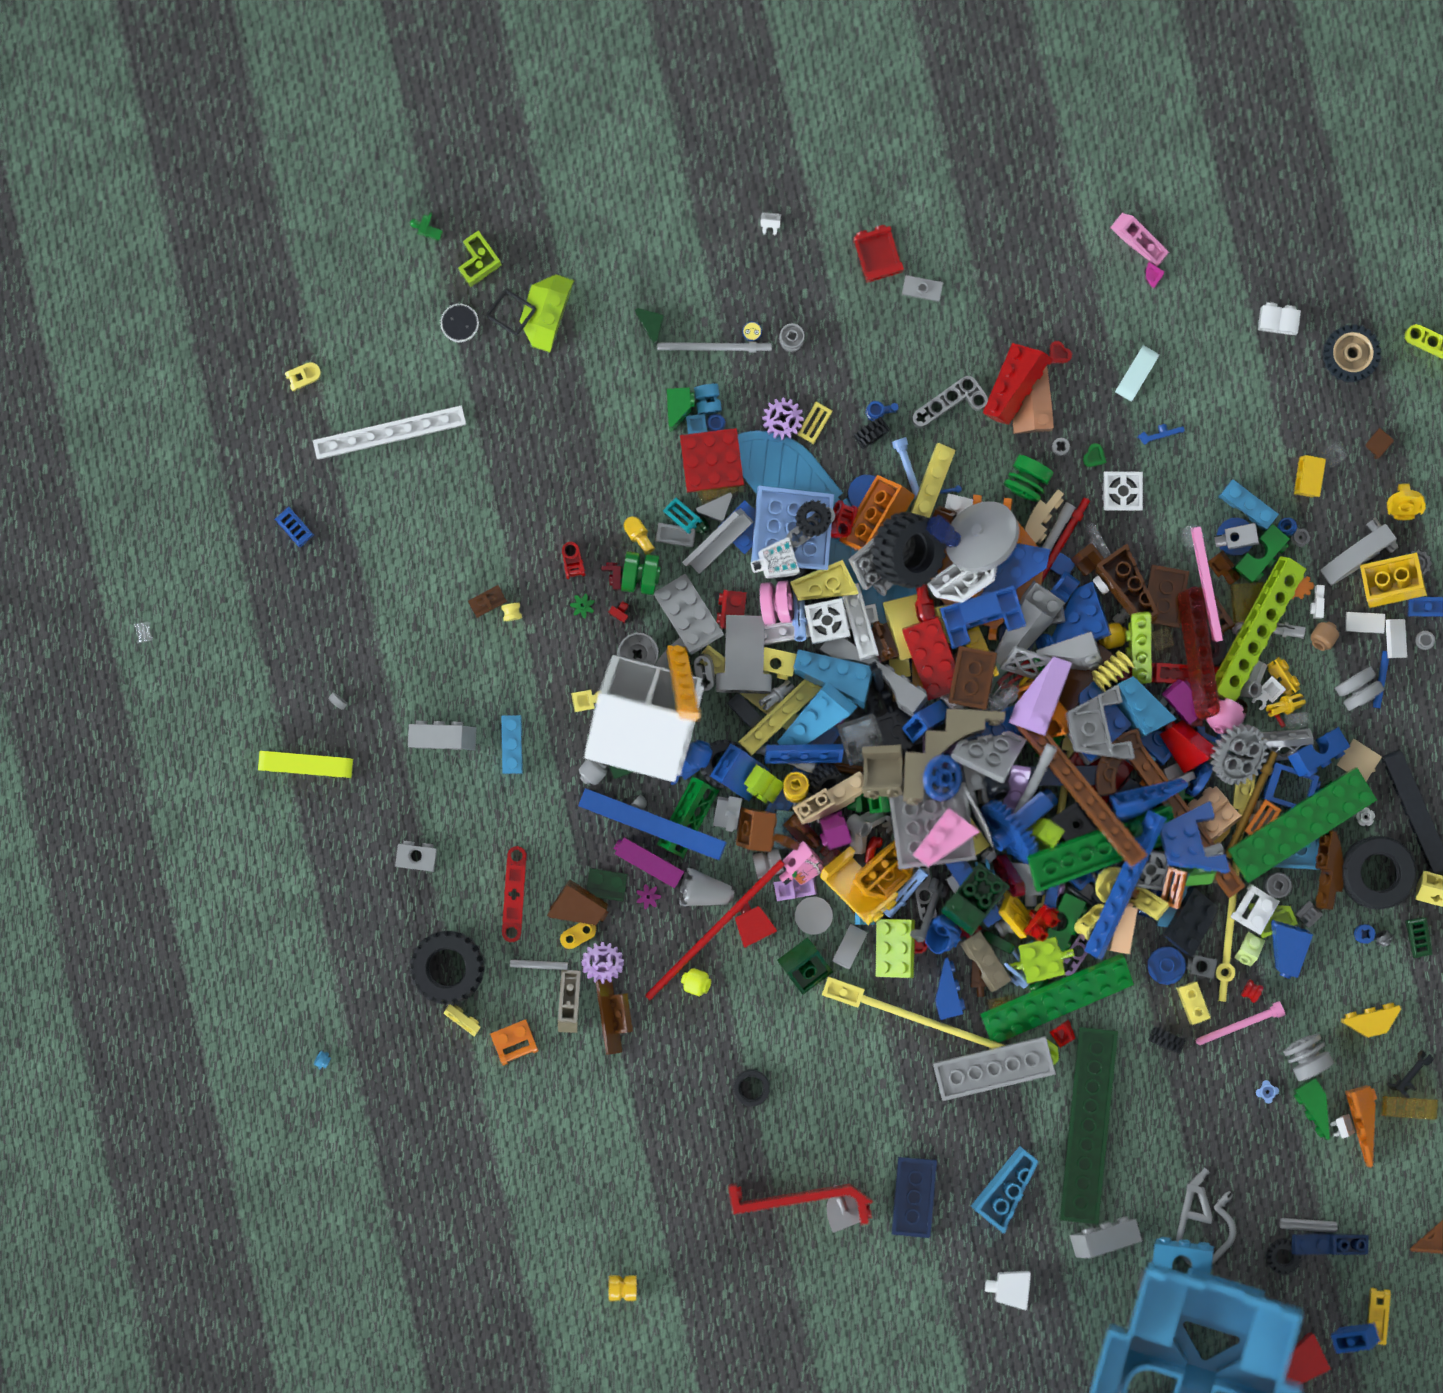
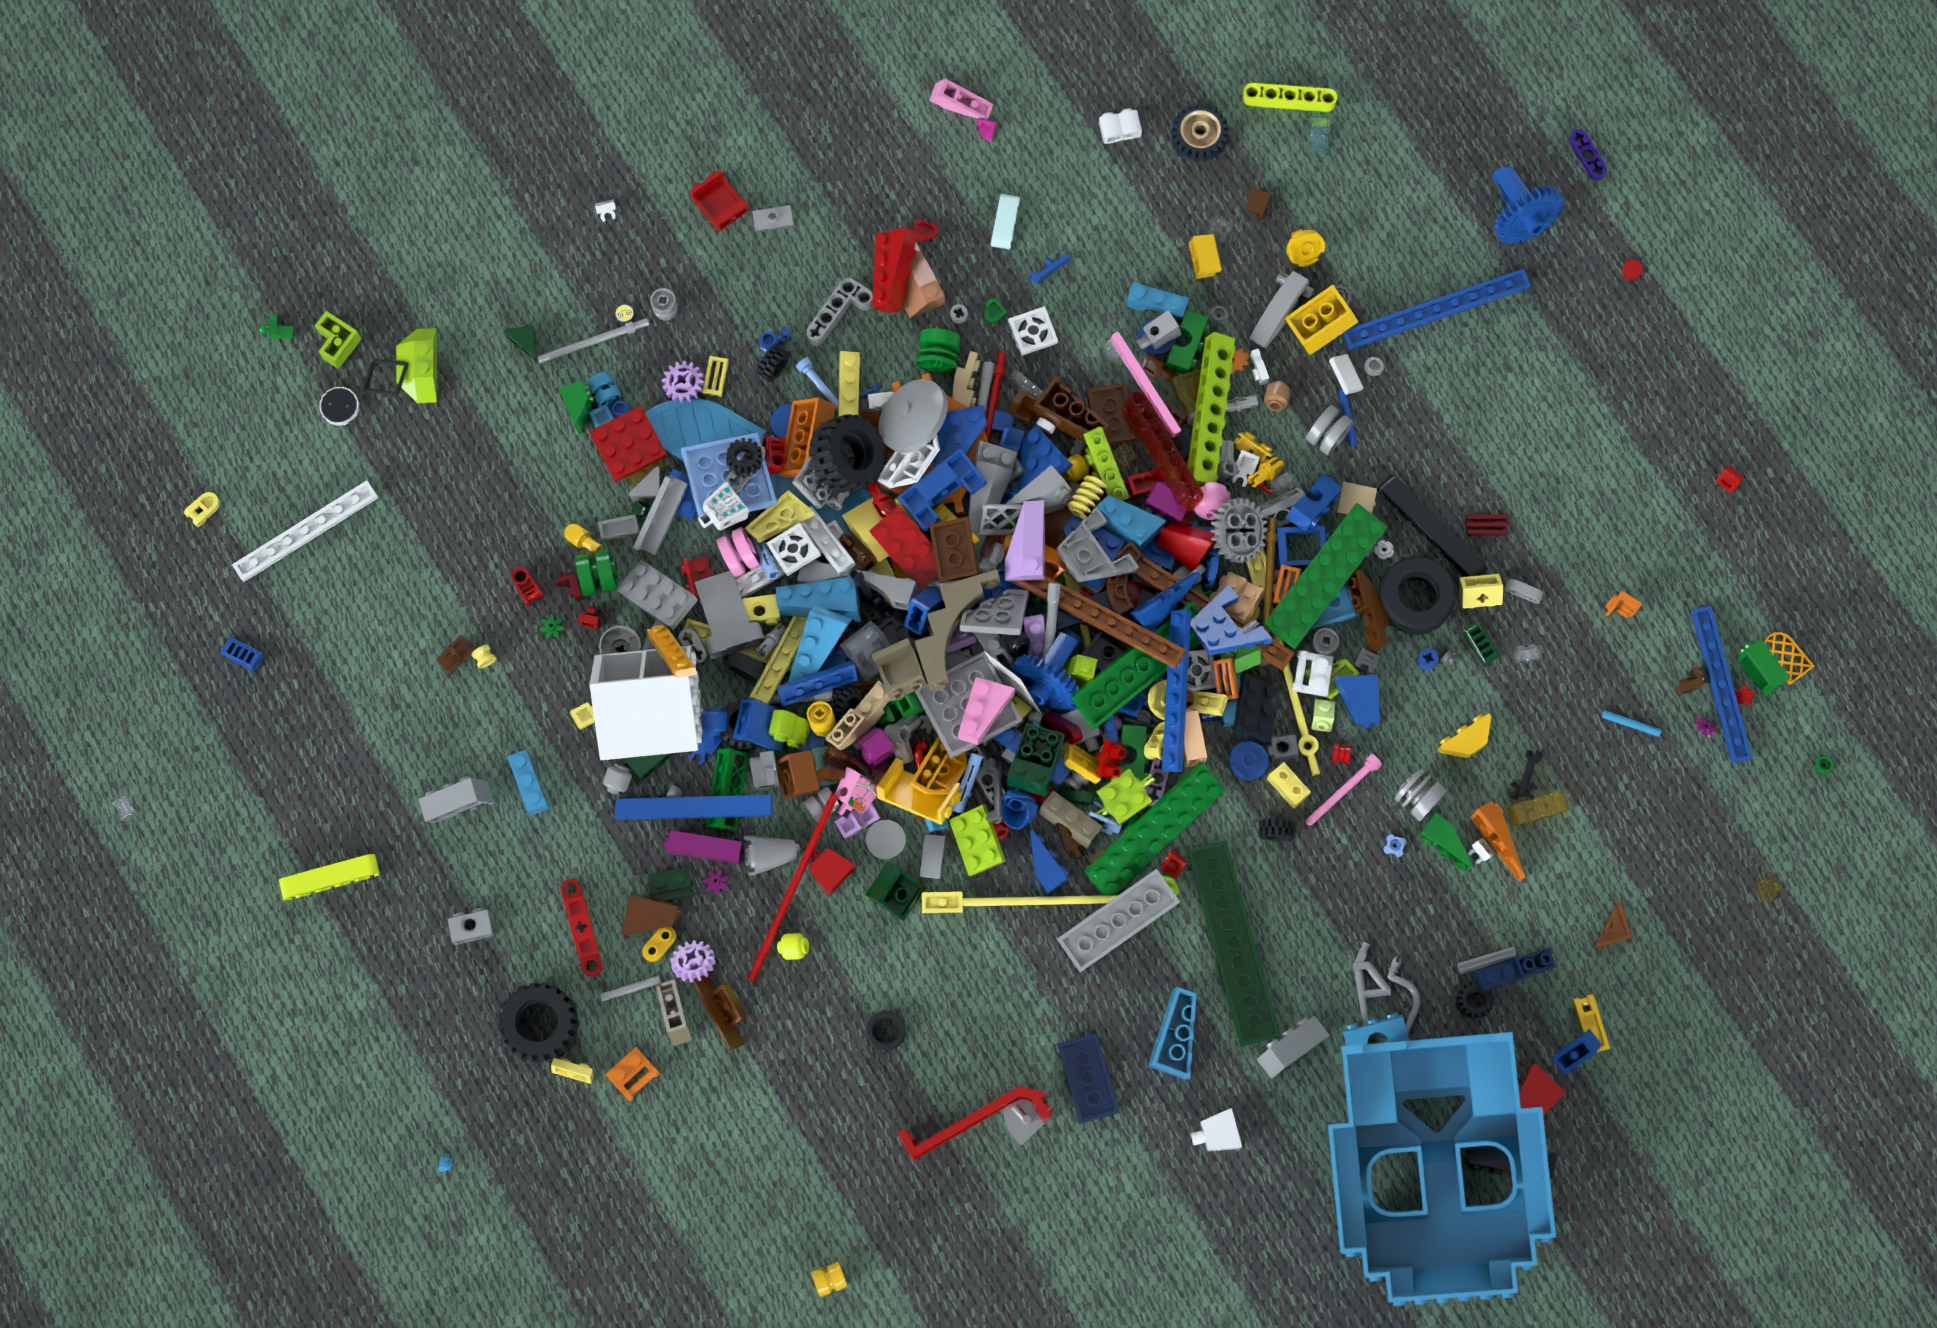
camera: 20 degrees left, 10 degrees down
(337, 701) = (340, 804): light grey tile -> none
(691, 524) = (628, 509): teal tile -> none
(943, 531) = (873, 420): clear blue connector -> none
(945, 774) = (946, 657): blue plate -> none
(1135, 828) = (1165, 631): dark green plate -> none
(1287, 521) = (1202, 304): blue plate -> none
(1365, 622) = (1310, 371): white tile -> none

